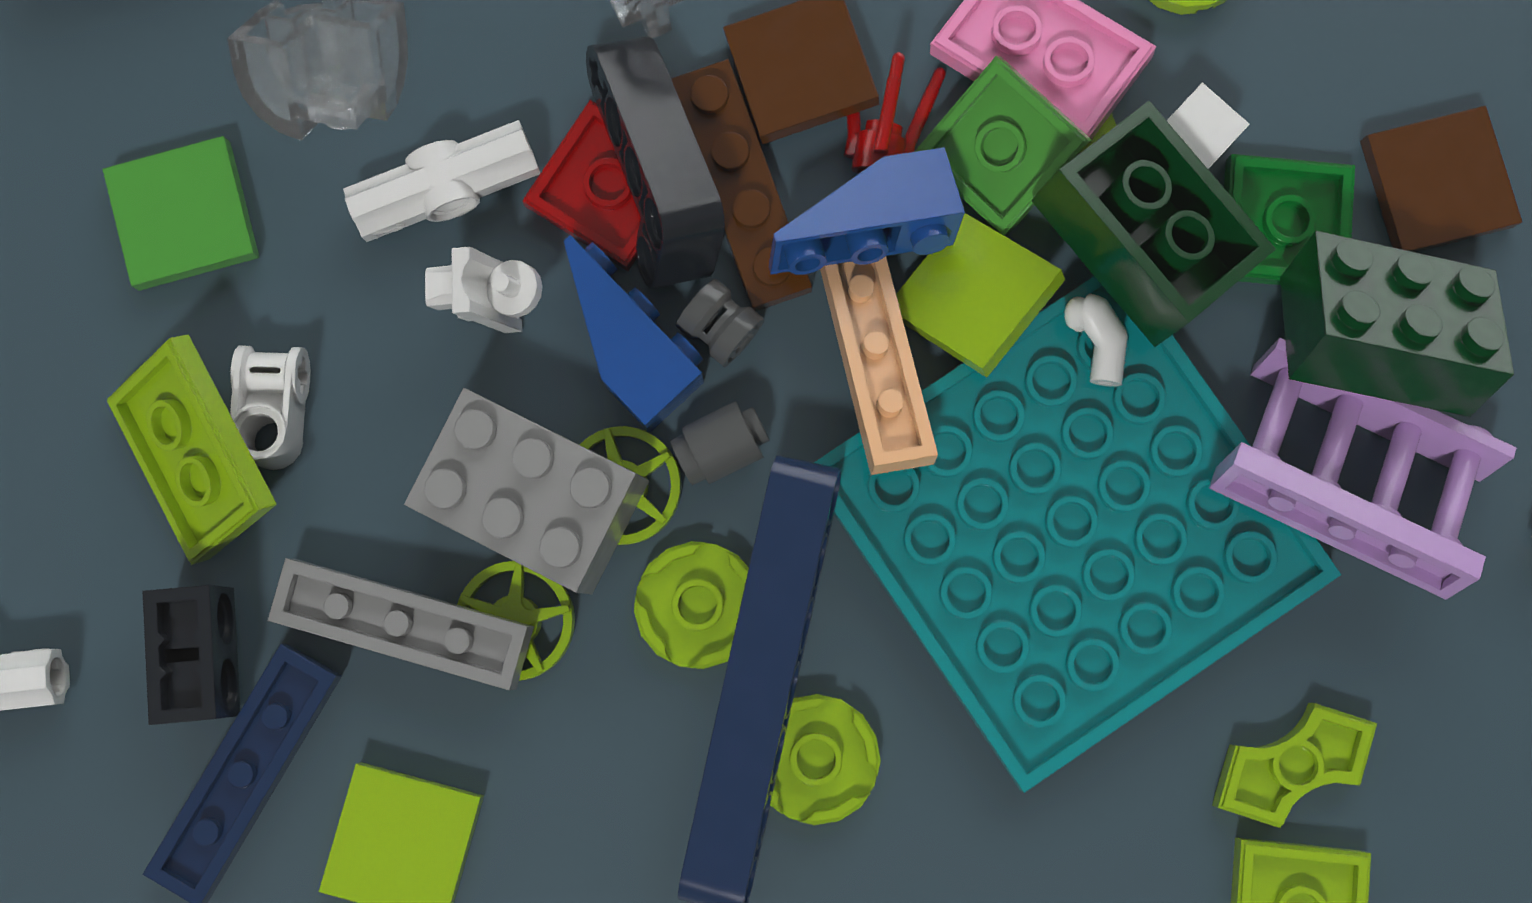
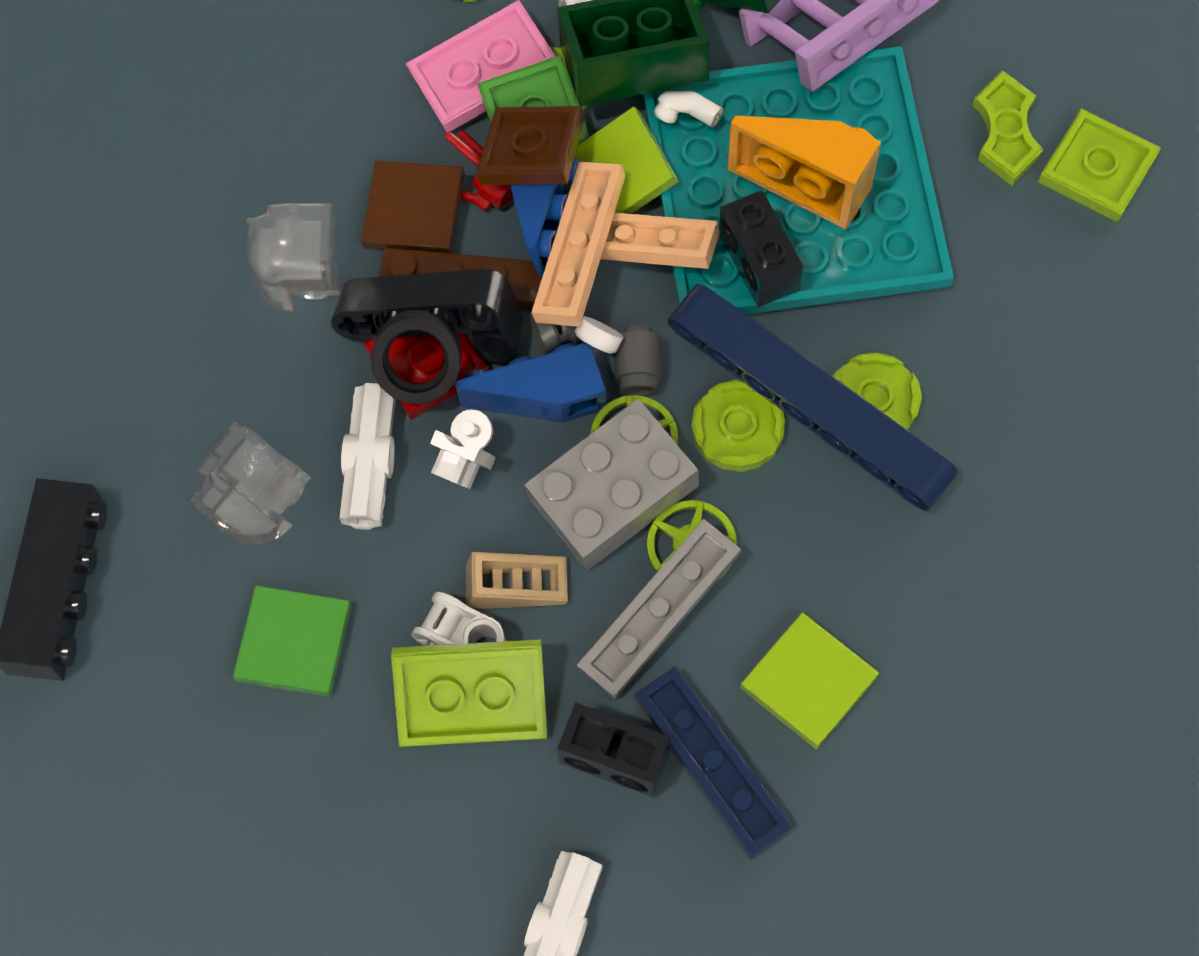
camera: 60 degrees left, 15 degrees down
(337, 424) = (499, 597): none -> tan slope
(537, 181) = (416, 392): none -> black tyre
(716, 380) = (599, 335): none -> white tile
(825, 295) = (578, 244): none -> light nougat plate
(931, 167) = (530, 145): none -> reddish brown tile
(931, 527) = (760, 248): none -> black brick
(1080, 546) = (807, 162): none -> light orange slope

